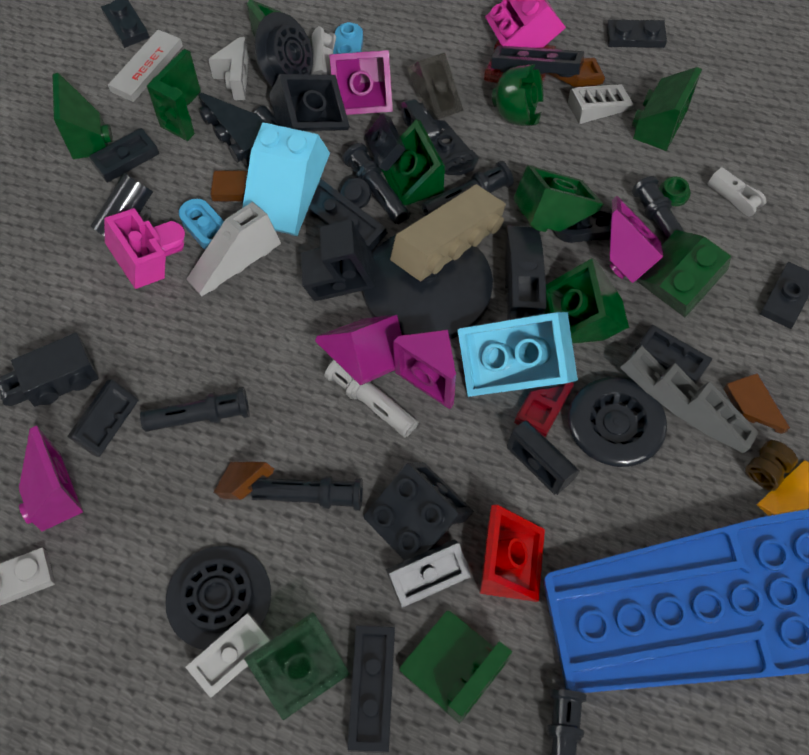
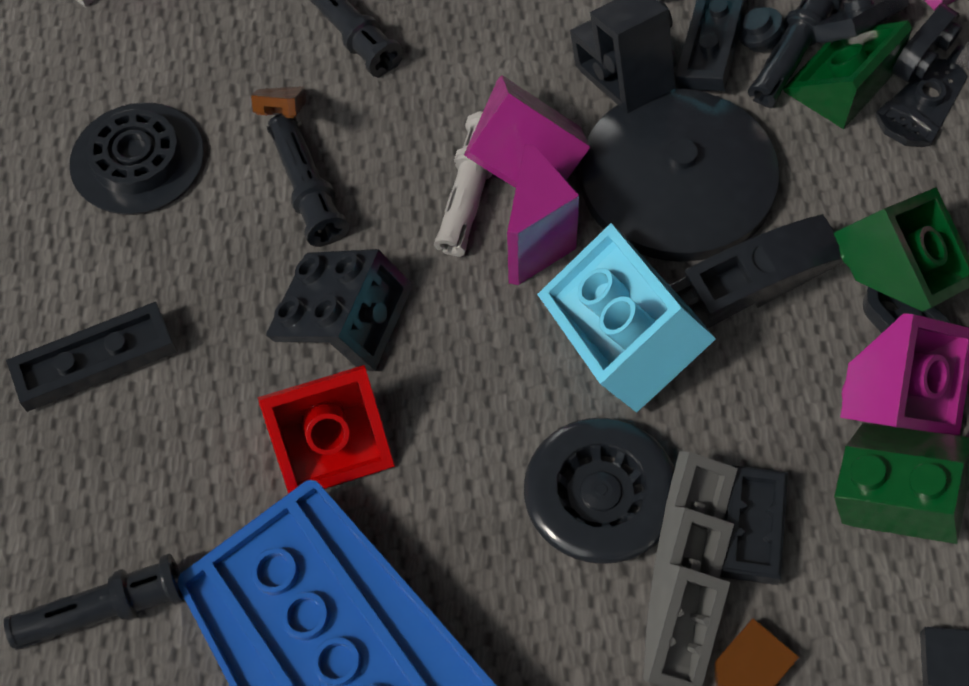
camera: 65 degrees right, 0 degrees up
(226, 655) = (69, 194): light grey plate -> none
(297, 666) = (83, 263): clear green slope -> none
(428, 573) = (259, 348): plate -> none
(447, 232) = (758, 145): dark tan brick -> none
(454, 665) = (154, 434): dark green bracket -> none
(489, 180) = (878, 161): black pin -> none
(541, 457) = (492, 414): black brick -> none
(543, 407) = (571, 390): dark red tile -> none
(591, 303) = (760, 372): dark green slope -> none

